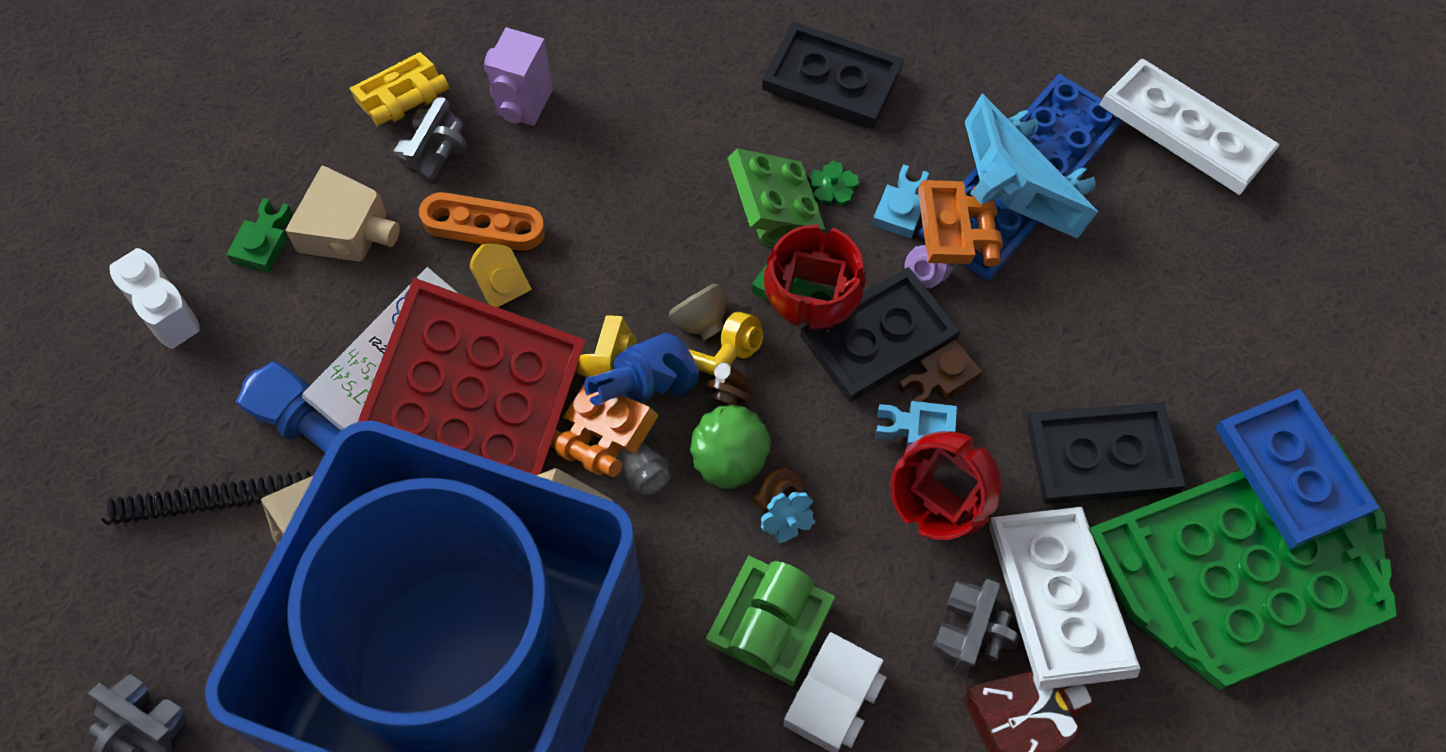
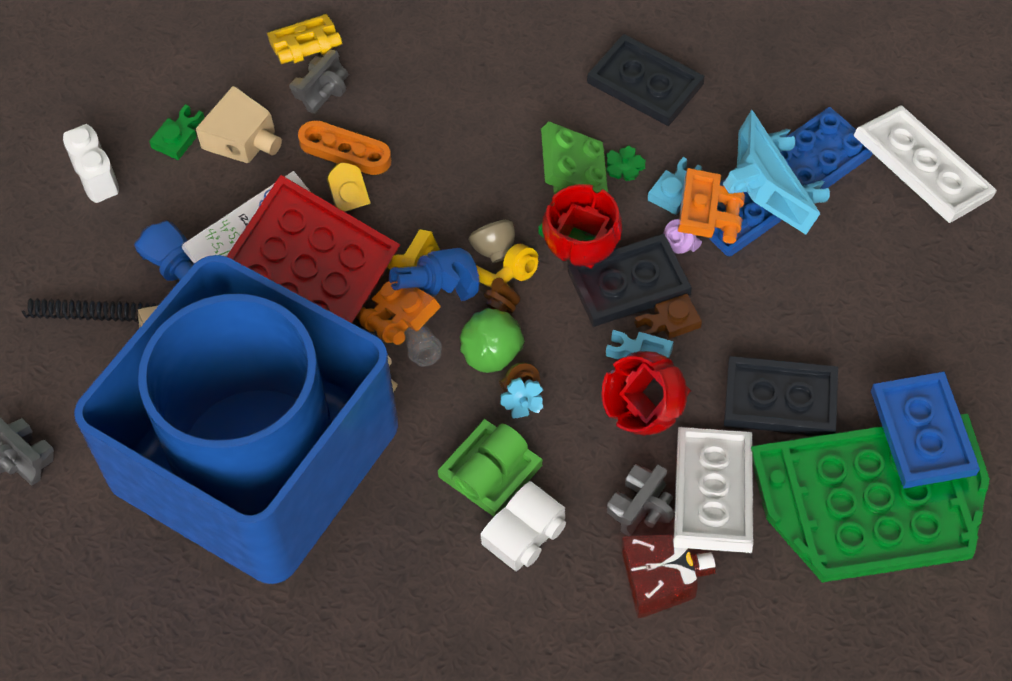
camera: 15 degrees right, 5 degrees down
(519, 76) = (396, 43): lavender brick -> none

